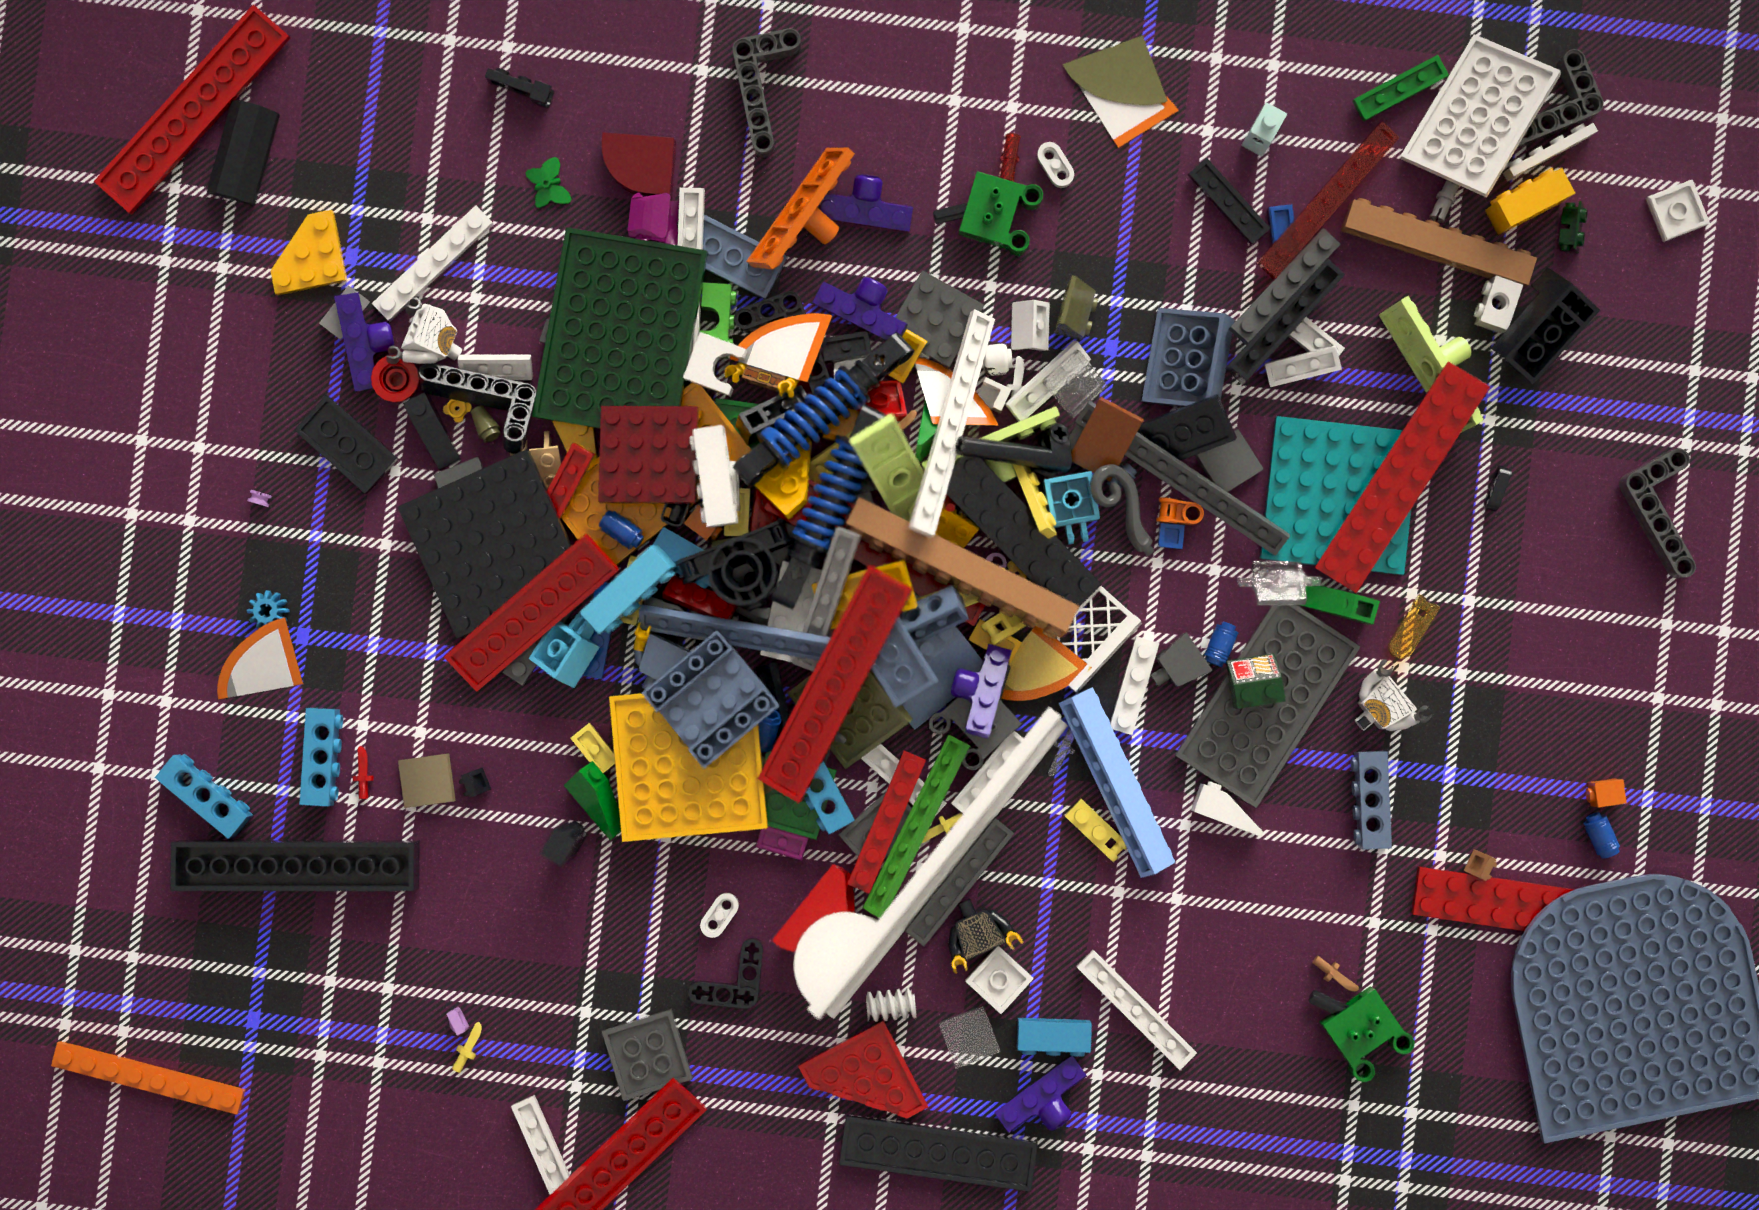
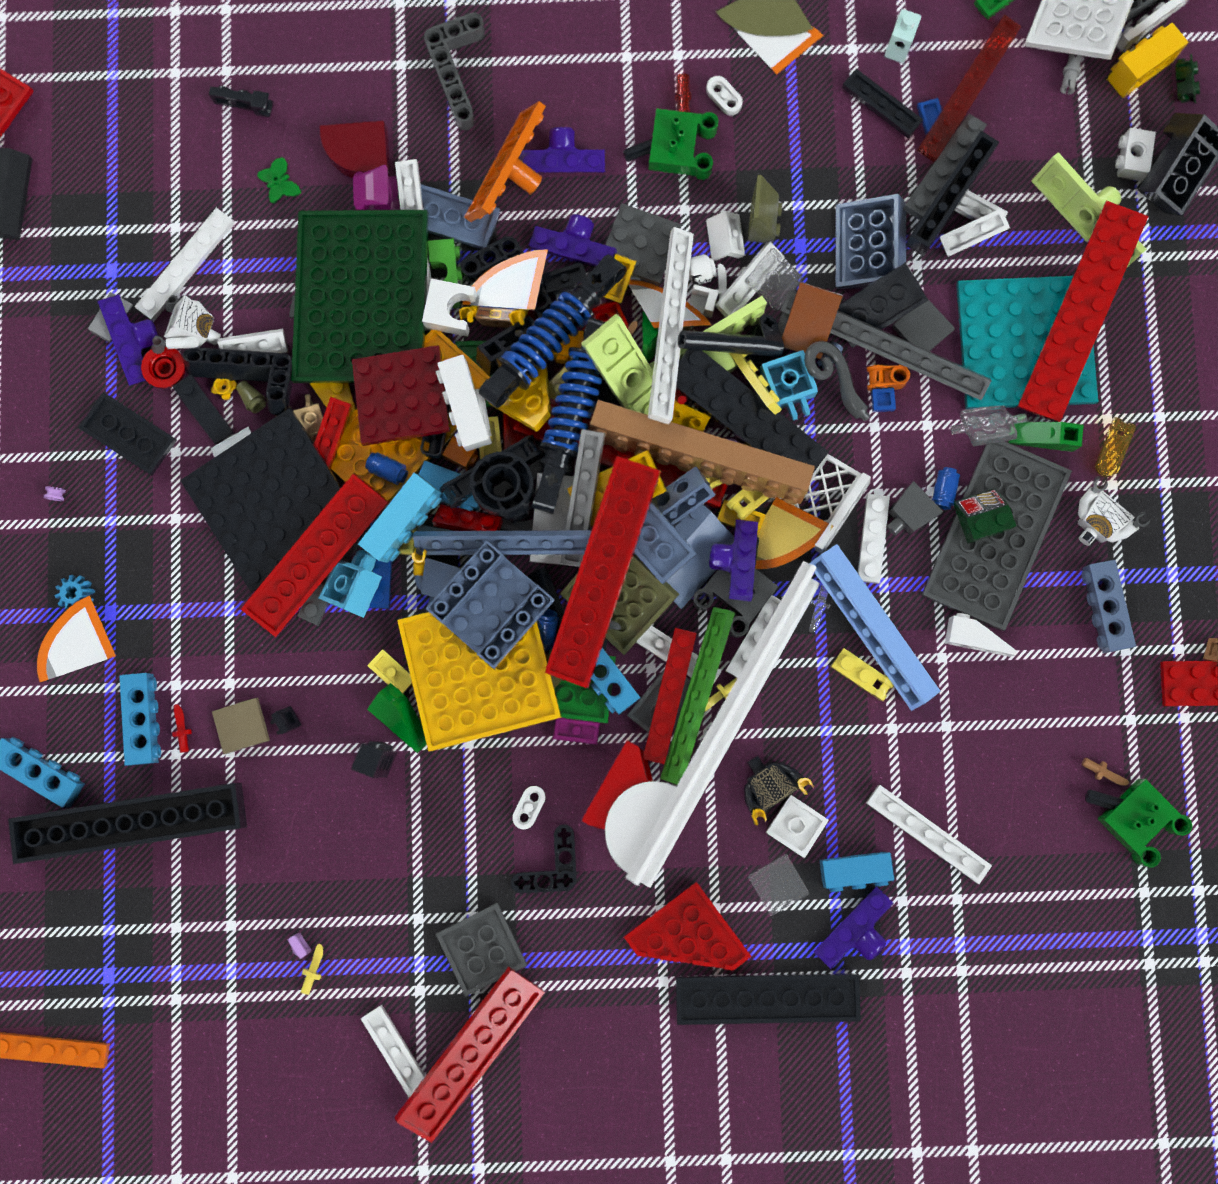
camera: 10 degrees left, 5 degrees down
(311, 256) = (75, 275): yellow plate -> none
(890, 1005) = (701, 865): white piece -> none
(959, 882) = (745, 741): dark grey plate -> none
(1437, 243) = (1070, 110): medium nougat brick -> none
(1497, 488) = (1166, 313): black beam -> none

